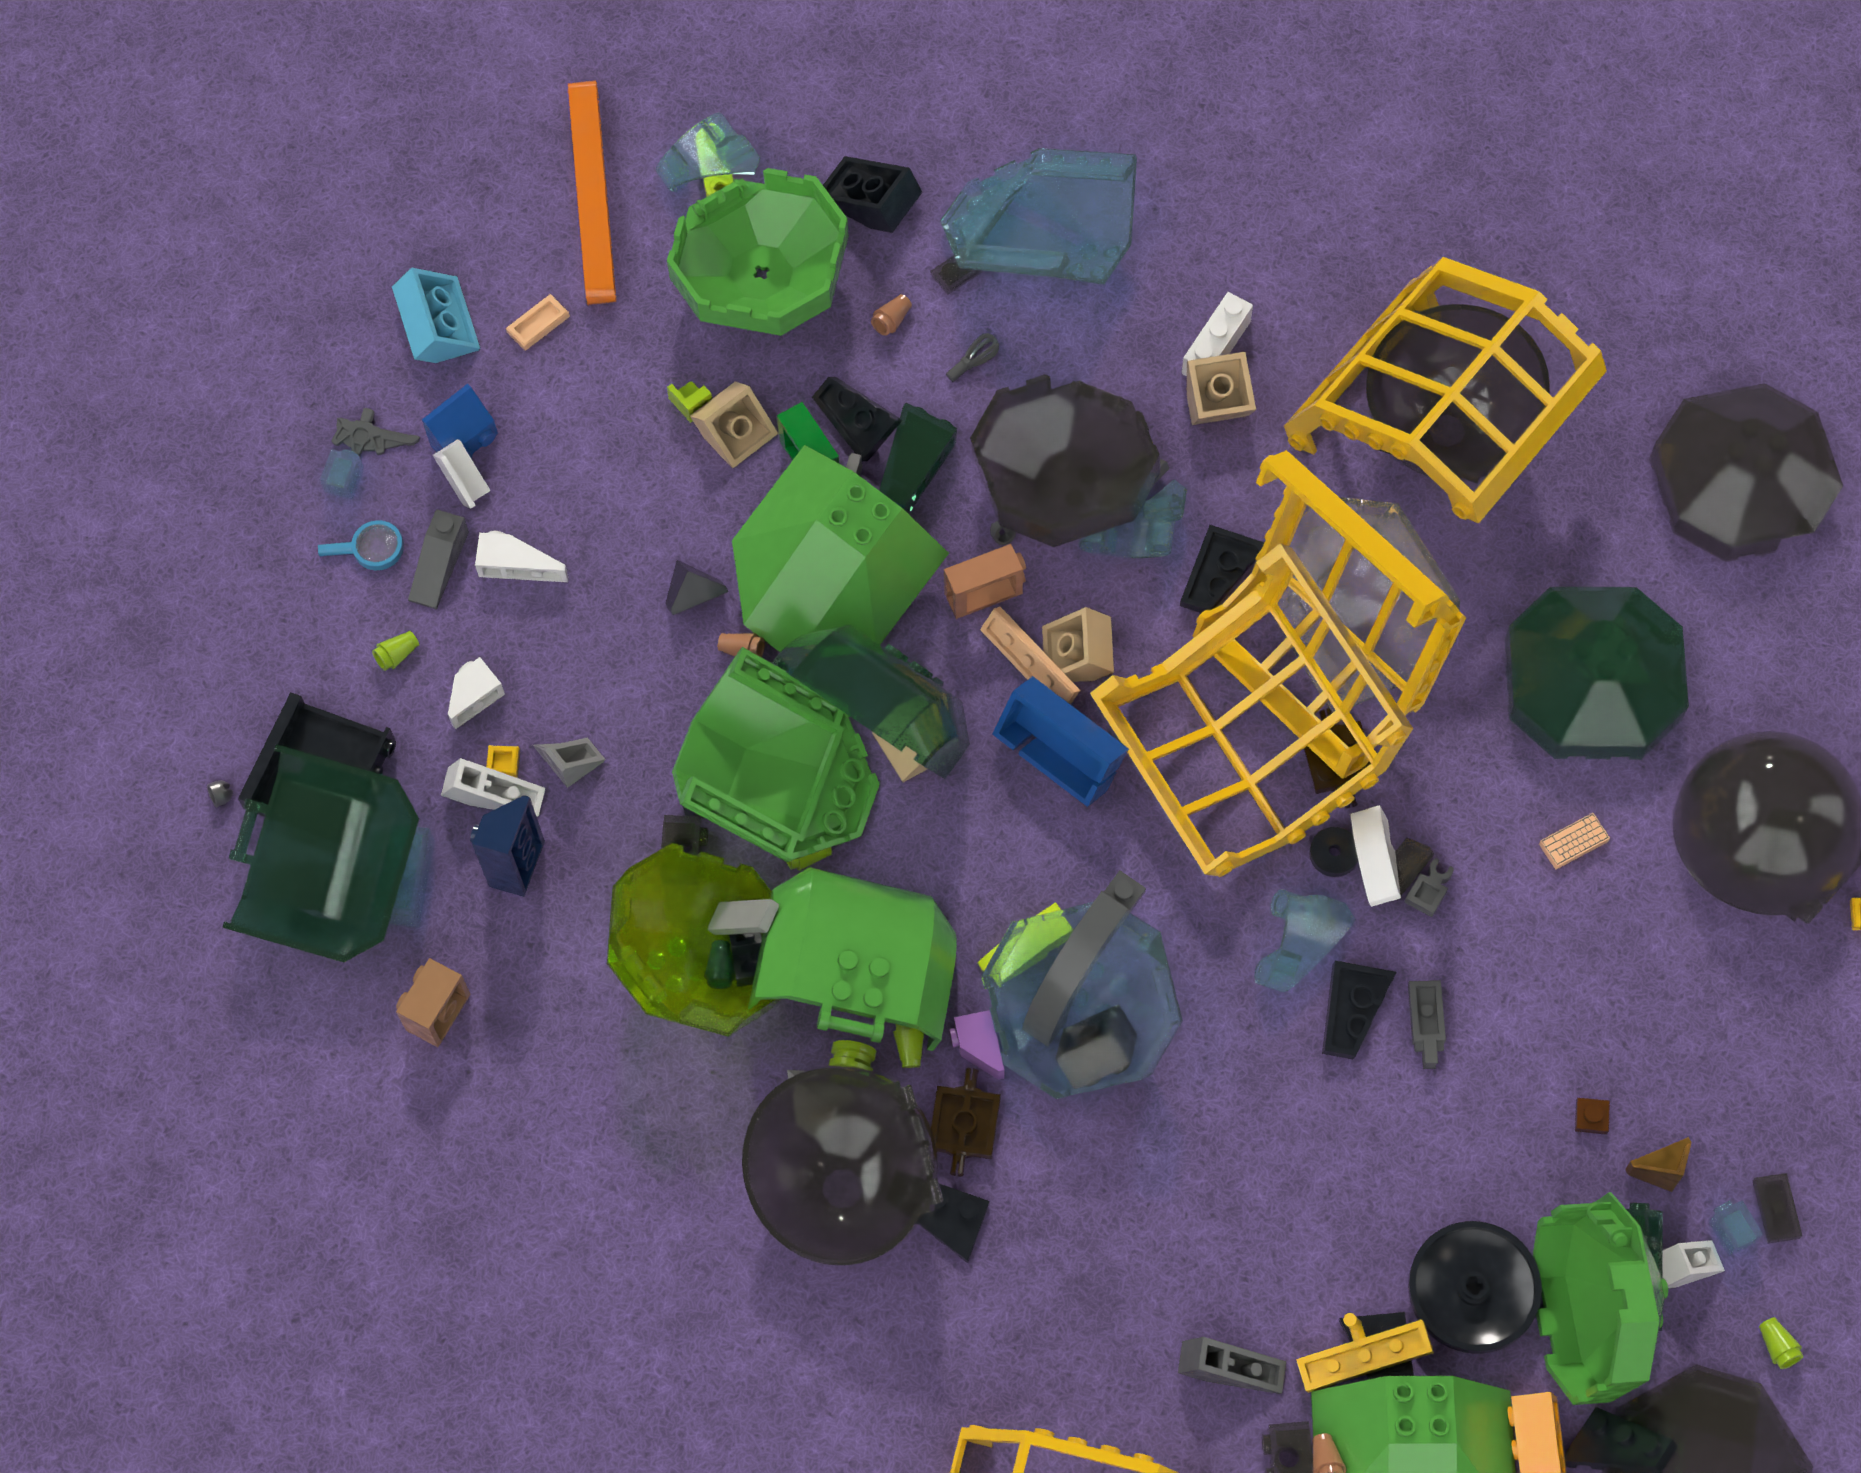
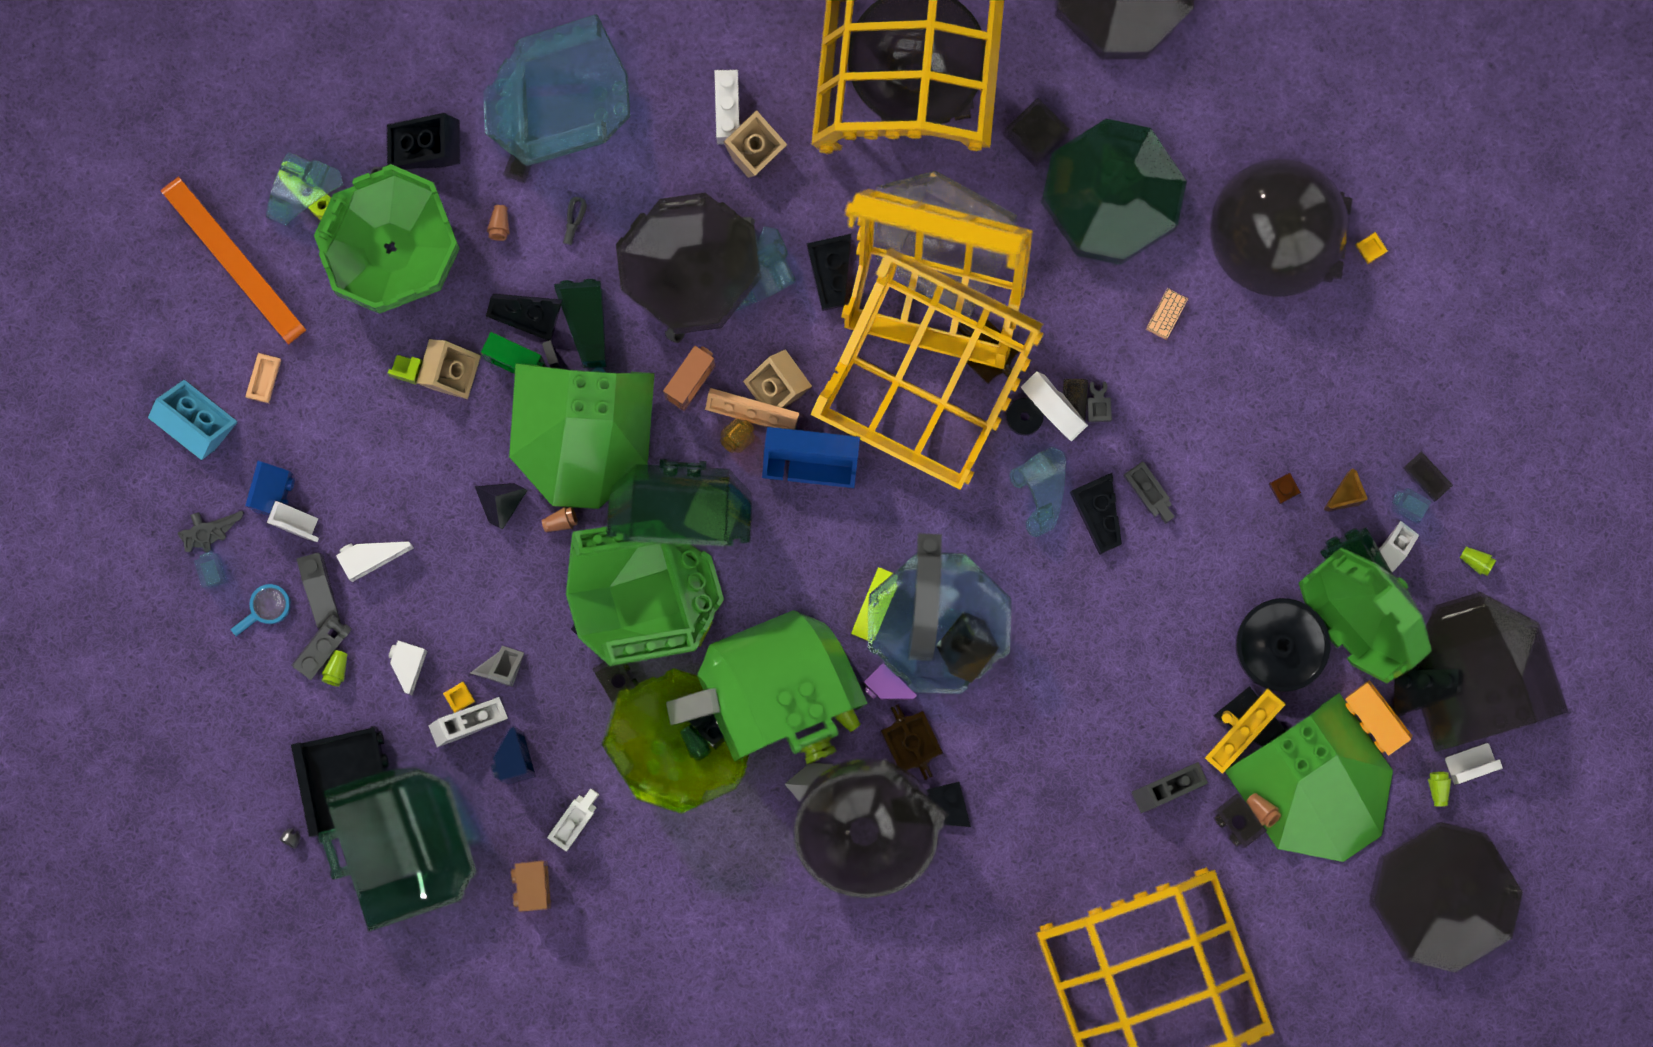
camera: 40 degrees left, 15 degrees up
(396, 619) = (320, 647): none -> dark grey plate
(530, 966) = (573, 820): none -> white hinge
(995, 675) = (737, 436): none -> clear yellow head
(1546, 559) = (1036, 132): none -> clear smoke brick

